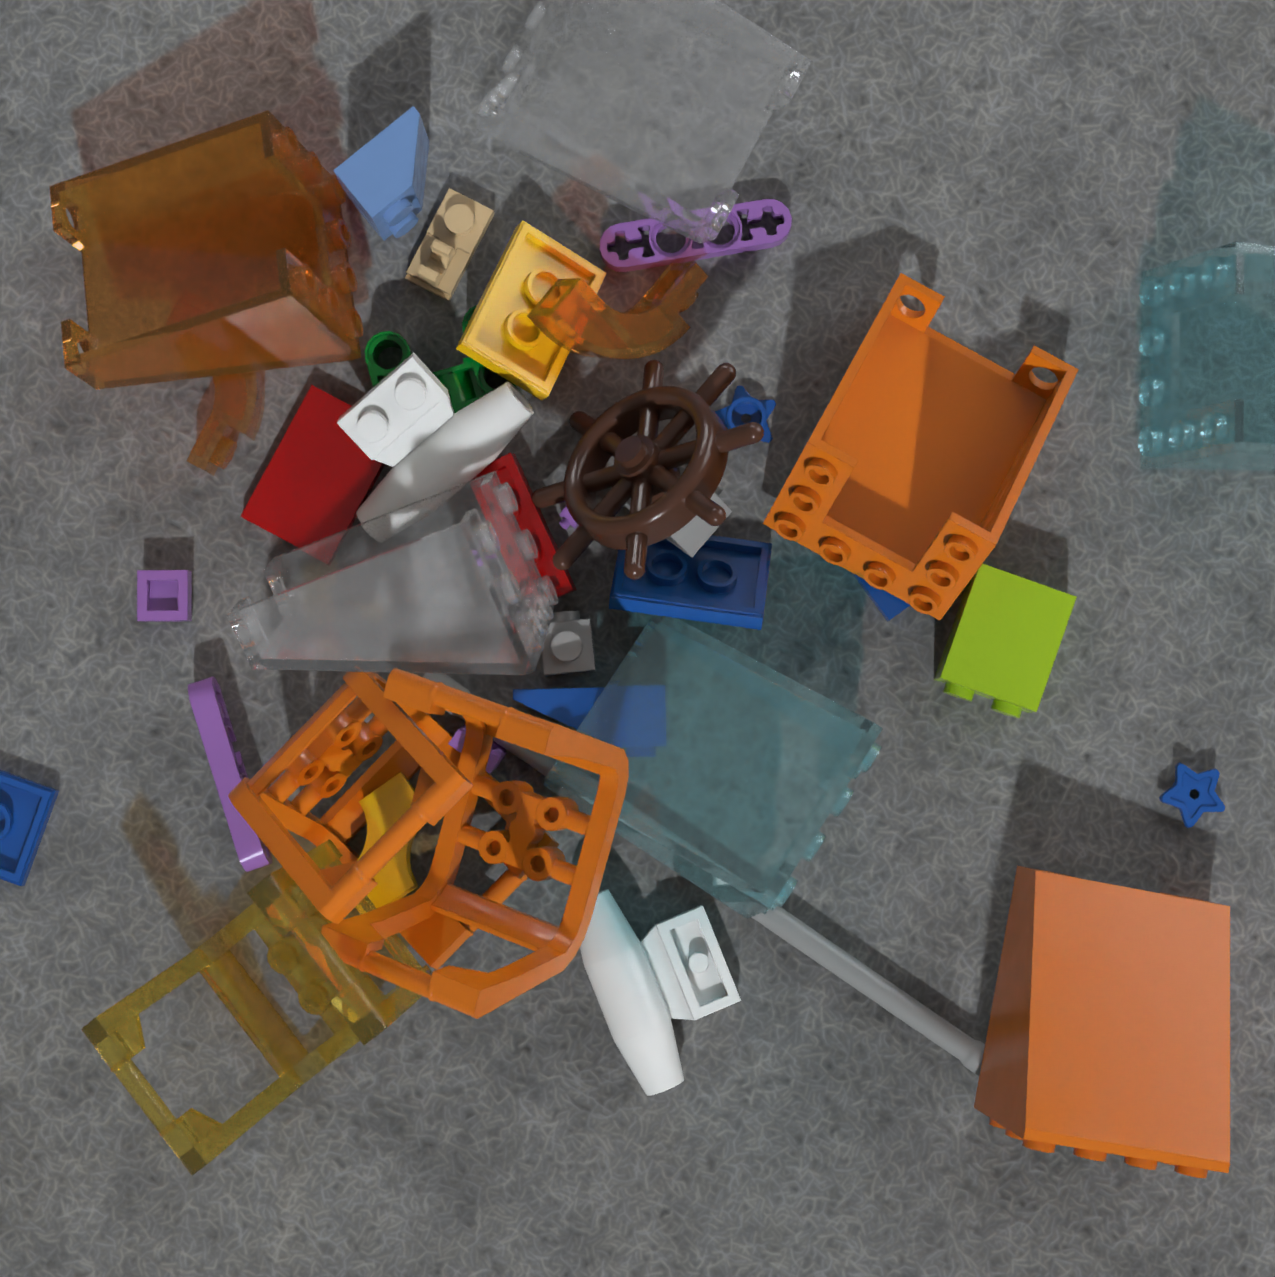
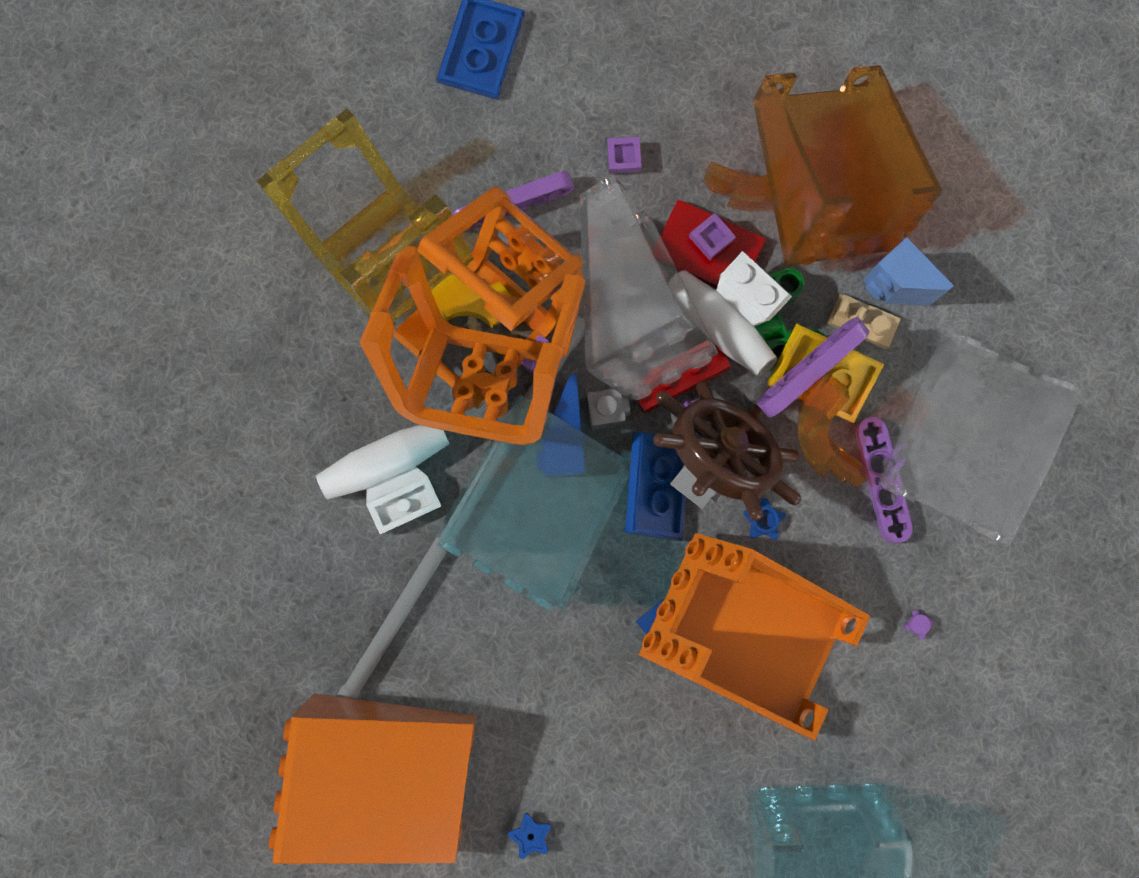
camera: 80 degrees right, 5 degrees down
(306, 467) = (712, 236): none -> medium lavender plate
(526, 328) = (813, 367): none -> medium lavender beam
(912, 201) = (919, 624): none -> medium lavender piece
(1004, 641) = (627, 700): lime brick -> none

